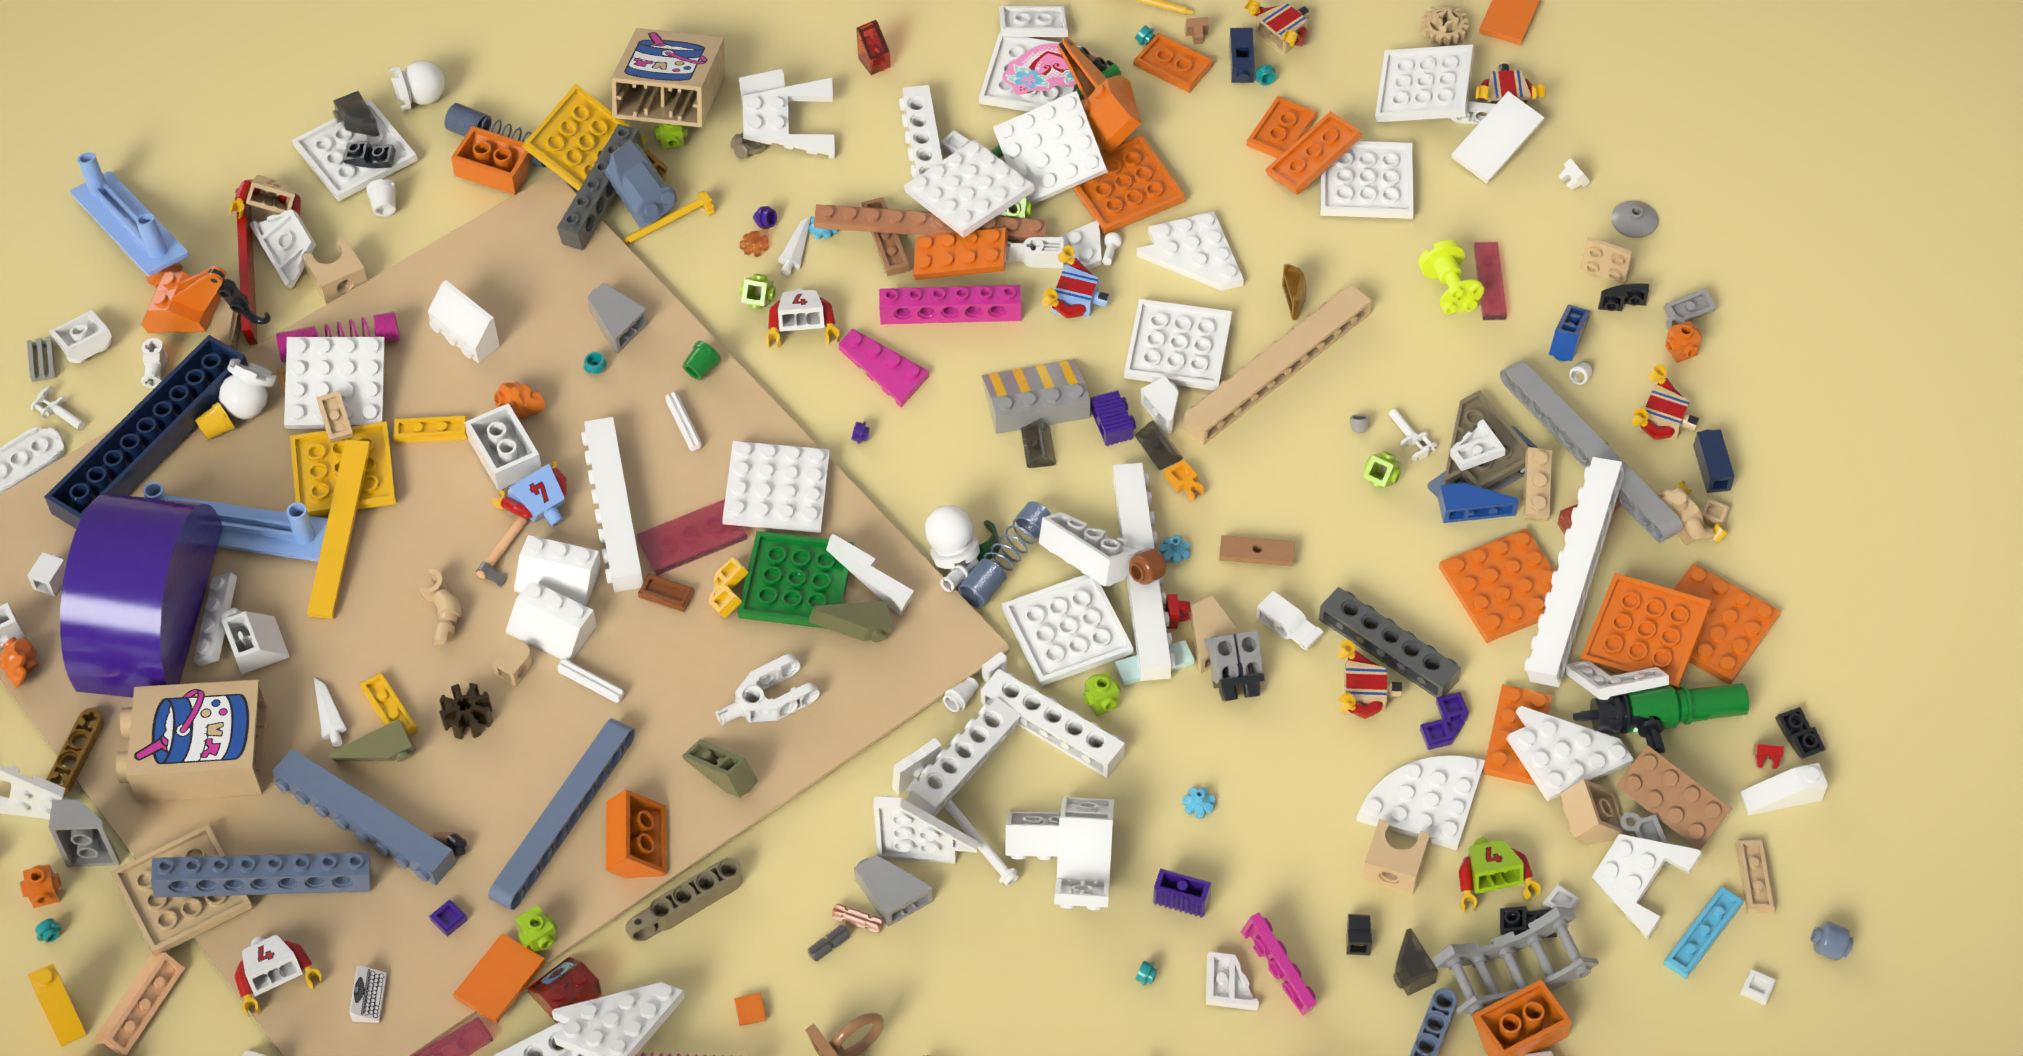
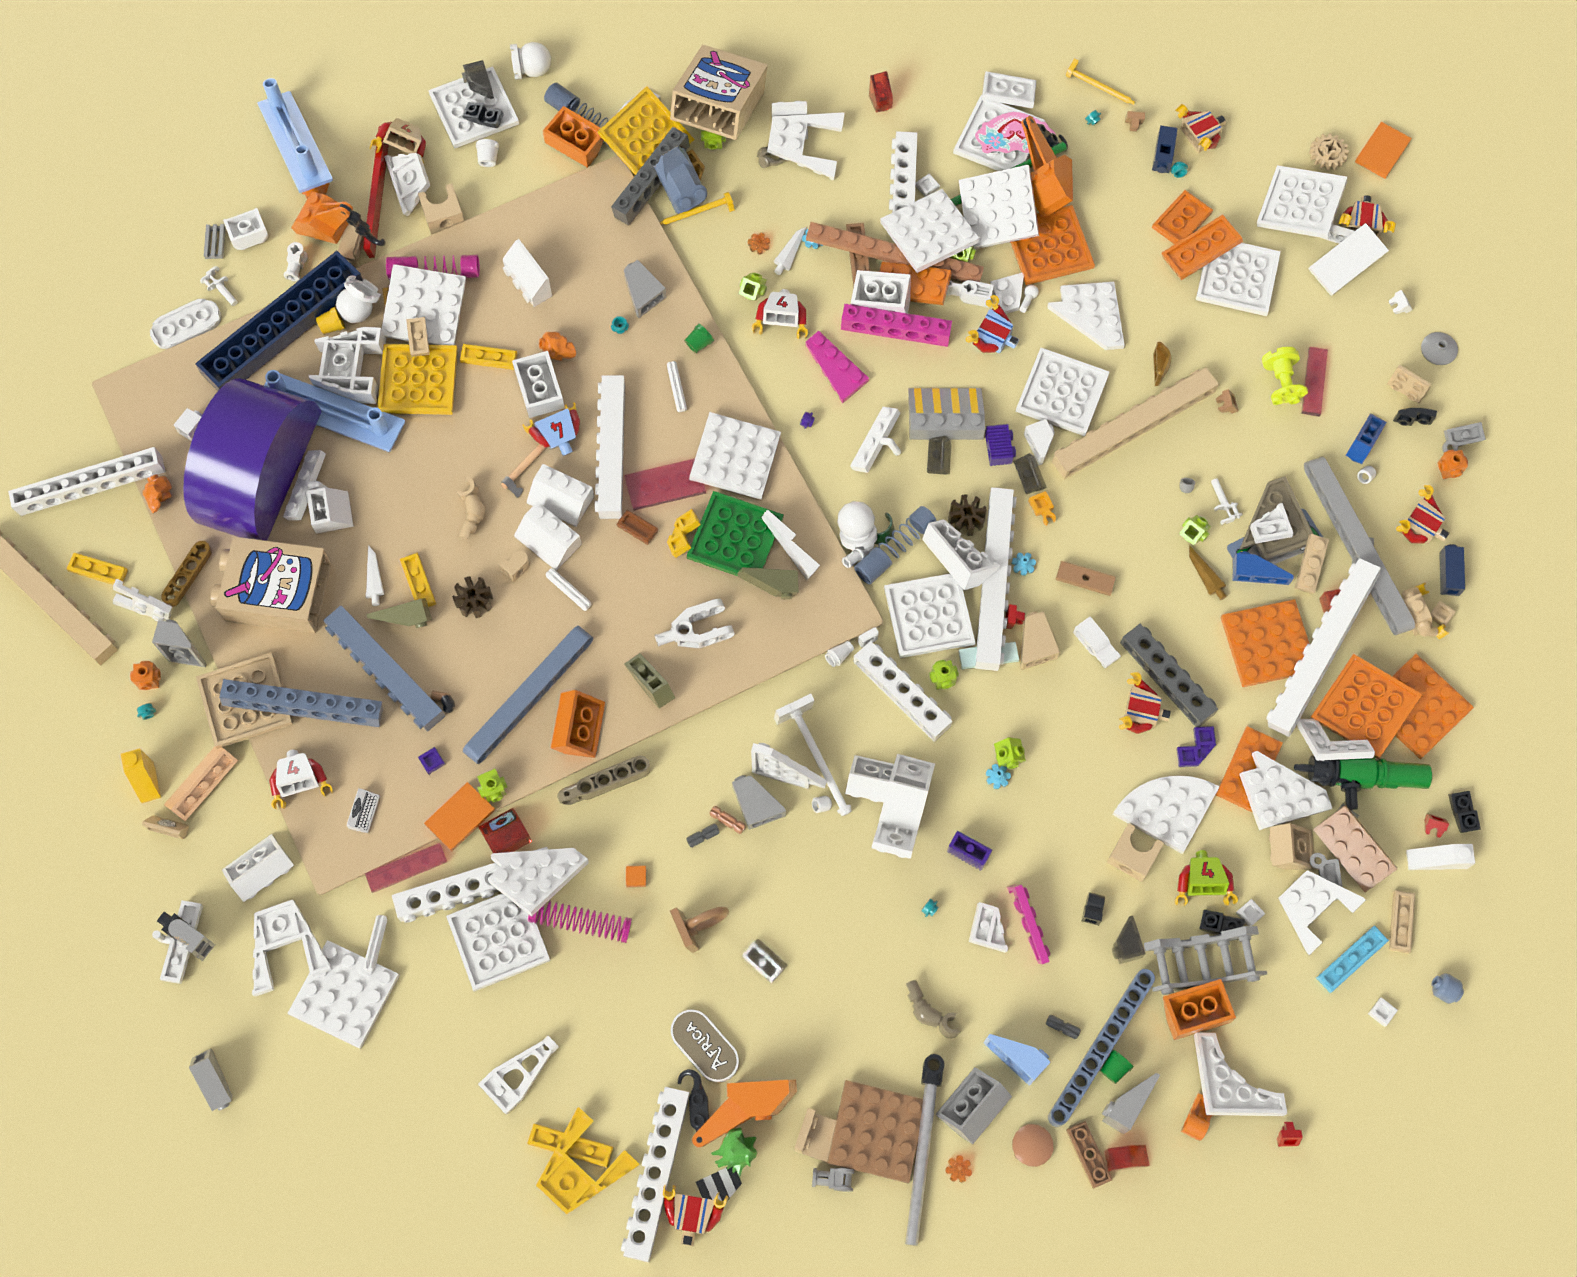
camera: 10 degrees right, 15 degrees up
(241, 465) = (343, 363): none -> white wedge
(339, 529) = (406, 429): yellow tile -> none
(765, 217) = (771, 223): dark purple plate -> none
(924, 265) = (882, 291): none -> white slope
(953, 439) = (876, 439): none -> white plate
(964, 757) = (797, 743): white brick -> none
(981, 877) = (823, 802): none -> white piece
(1090, 503) = (975, 518): none -> dark brown gear
(1147, 566) = (999, 581): dark orange head -> none
(1173, 62) = (1110, 145): orange tile -> none
(1207, 768) = (1009, 752): none -> lime brick
(1236, 662) = (1049, 672): light grey hips -> none
(1389, 319) = (1229, 402): none -> medium nougat tile
(1412, 523) = (1208, 576): none -> pearl gold bar

